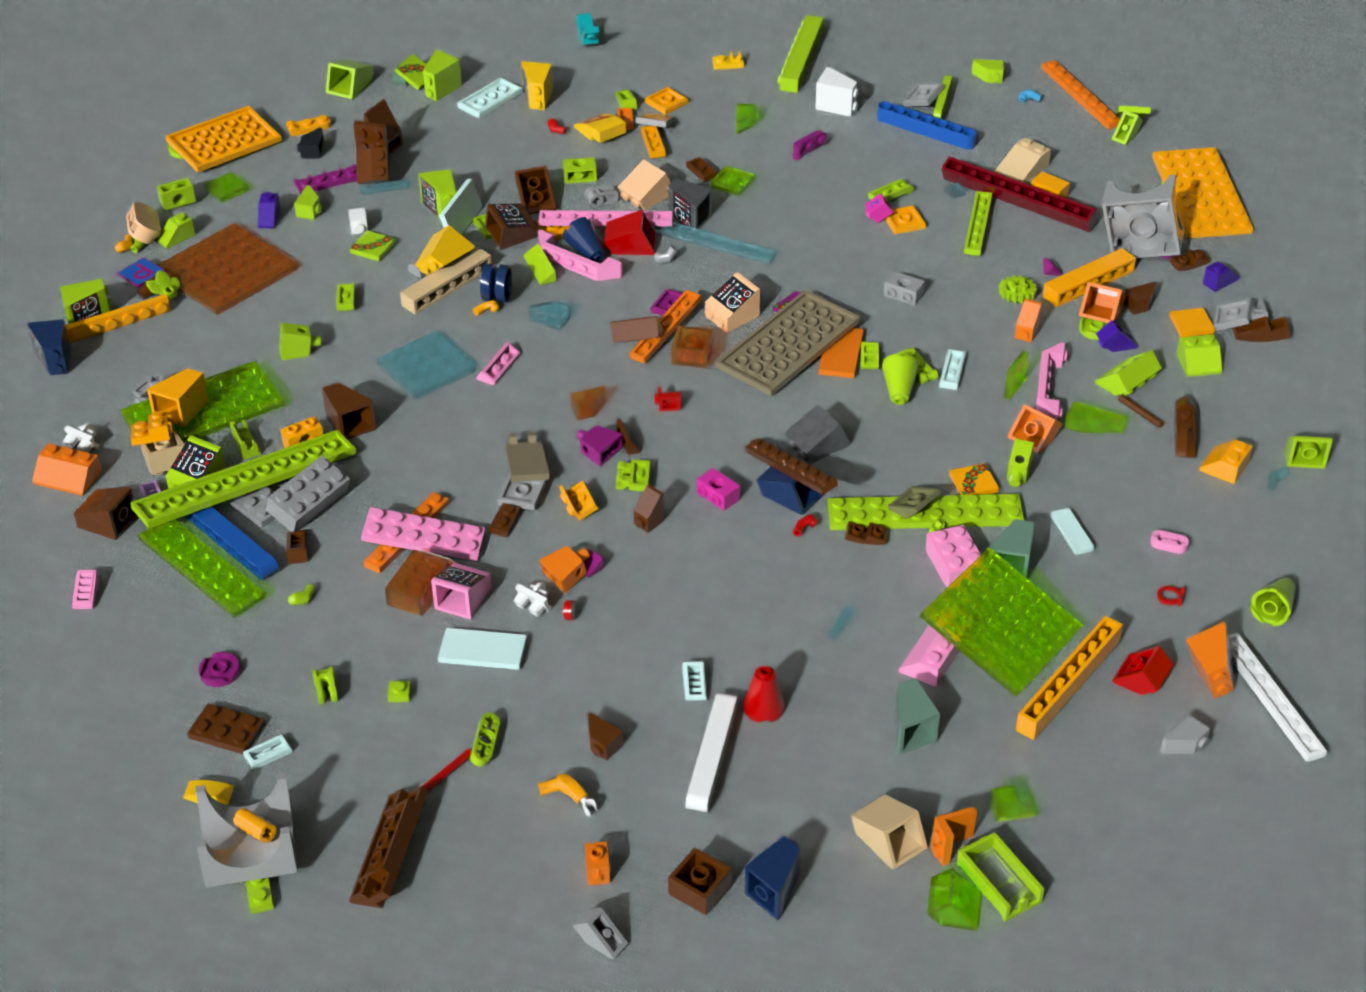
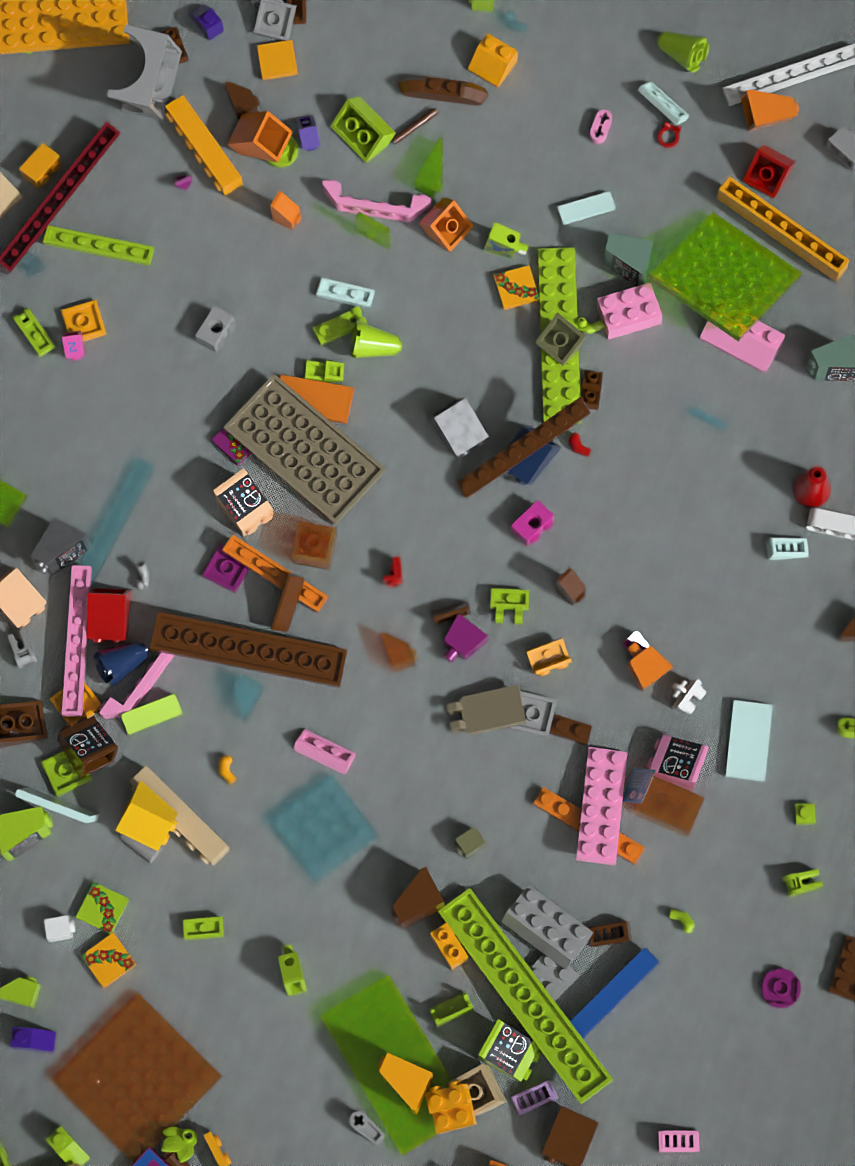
camera: 85 degrees left, 30 degrees up
(202, 567) = (650, 1020): clear neon green plate -> none
(328, 250) = (108, 960): none -> light orange tile
(399, 450) = (469, 843): none -> olive brick
(496, 282) = (200, 755): dark blue wheel -> none
(569, 610) = (701, 661): red tile -> none
(591, 311) = (248, 649): none -> reddish brown plate
(1017, 289) = (218, 211): lime gear -> none
(1199, 355) = (338, 59): lime slope -> none
(1208, 587) = (663, 103): none -> light aqua tile

